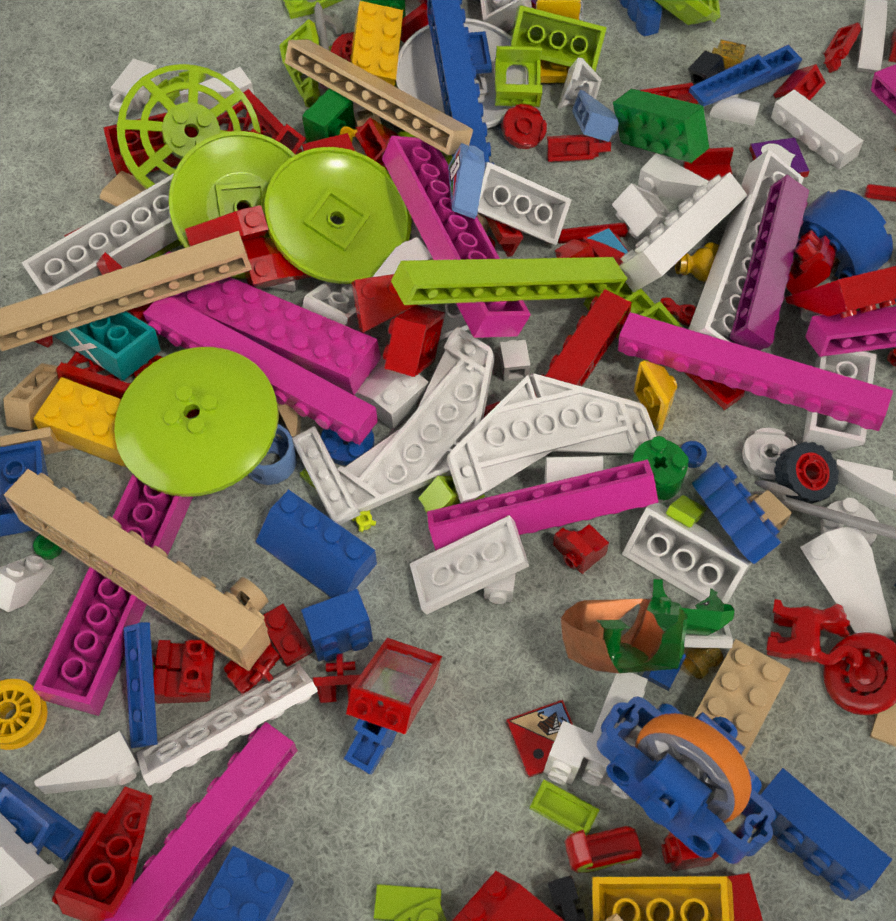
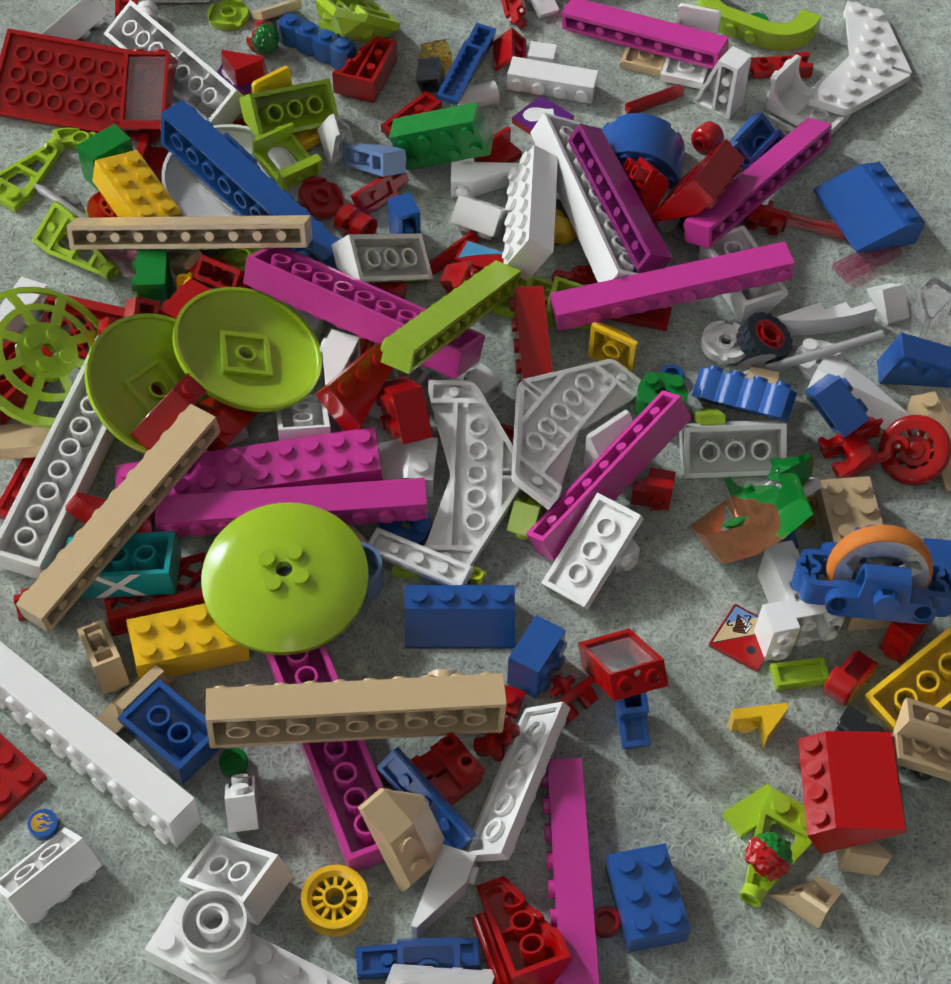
camera: 40 degrees left, 5 degrees down
(77, 699) = (404, 833): none -> tan wedge
(190, 900) = (606, 922): none -> red tile
(466, 179) = (339, 258): medium blue slope -> none
(492, 829) = (765, 718): none -> yellow slope
(531, 162) = (354, 221): none -> red wheel
(571, 178) = (403, 215): none -> blue brick
(656, 41) = (368, 71): none -> red wedge
(813, 579) = (837, 404): none -> blue piece
(827, 101) = (543, 52): none -> white brick

